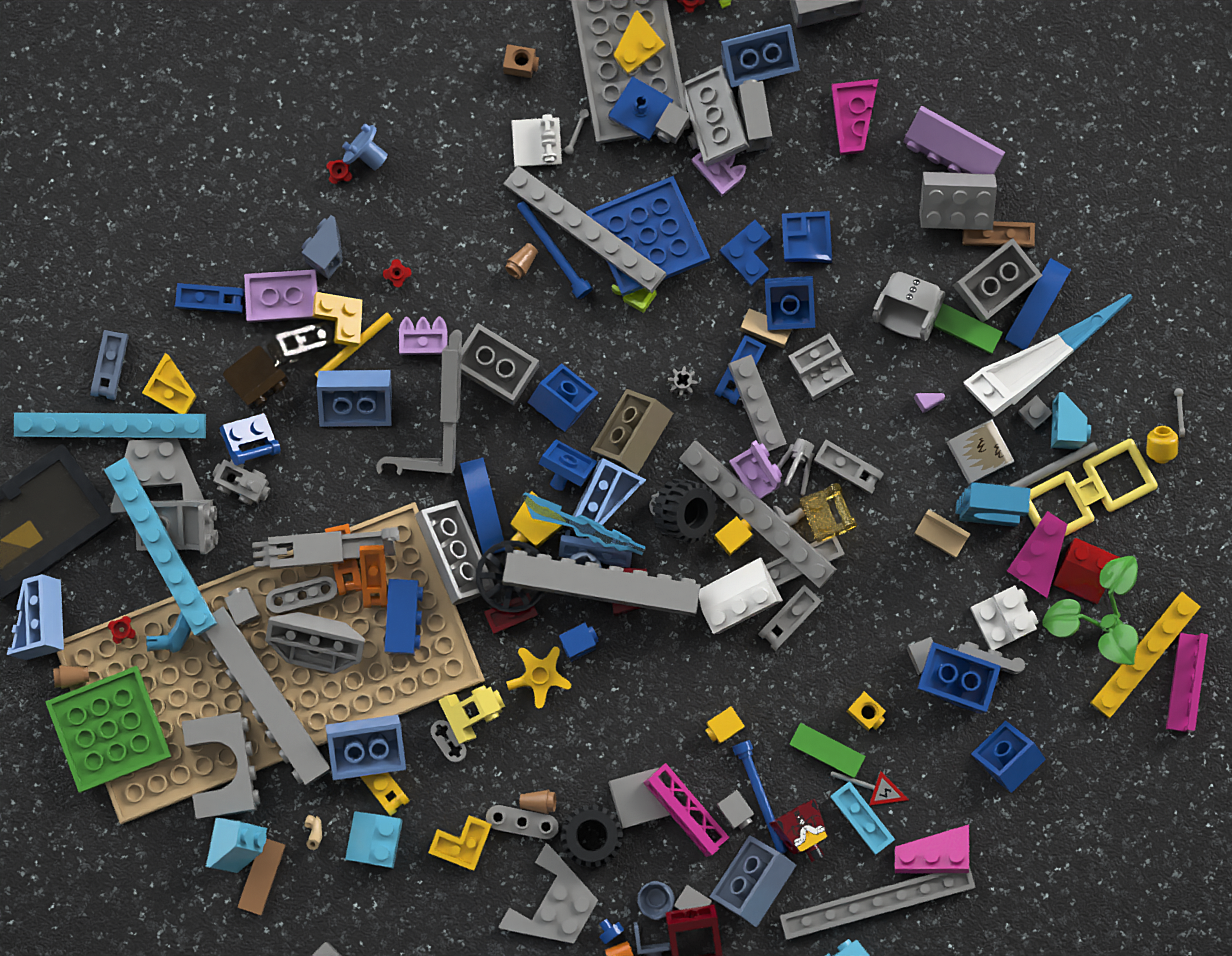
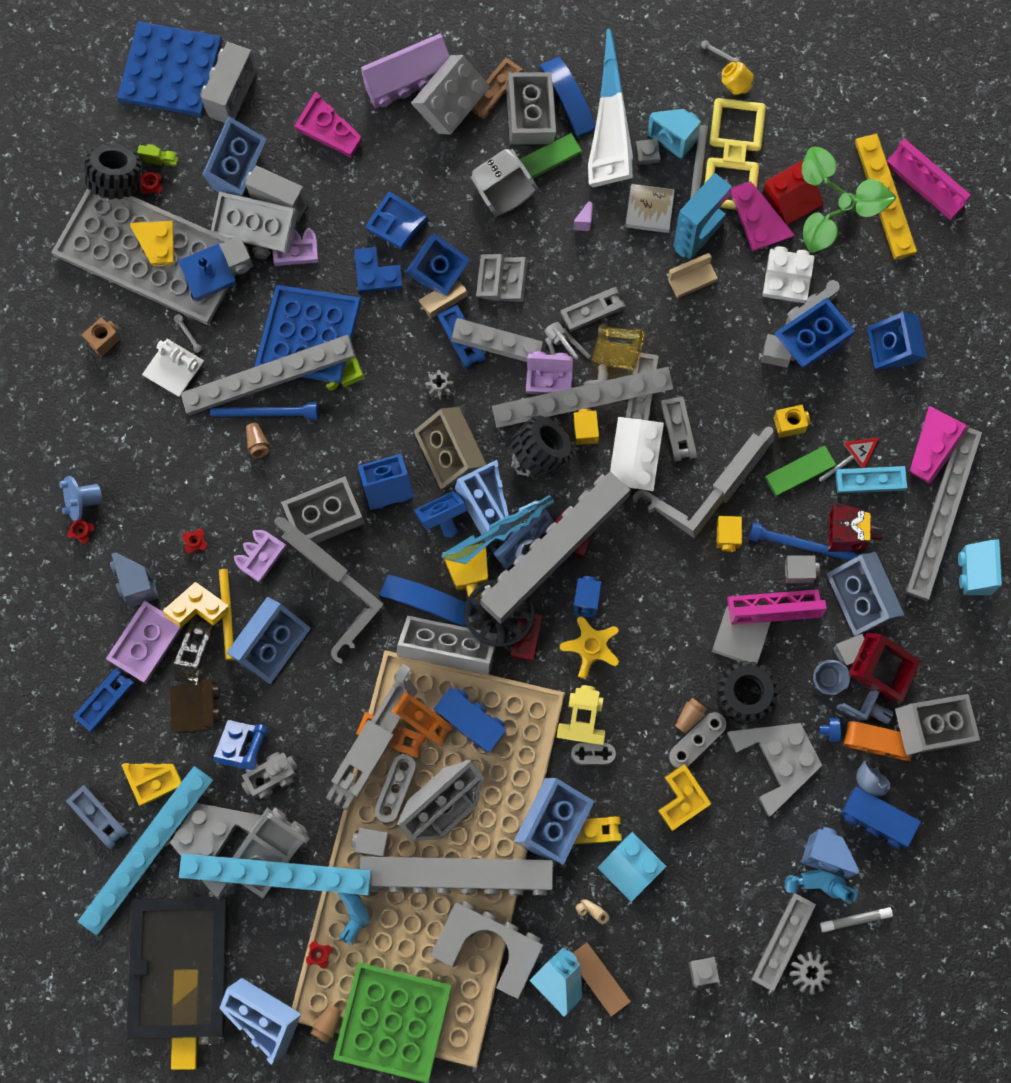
camera: 50 degrees left, 5 degrees down
(762, 693) = (722, 488): none -> light grey hinge

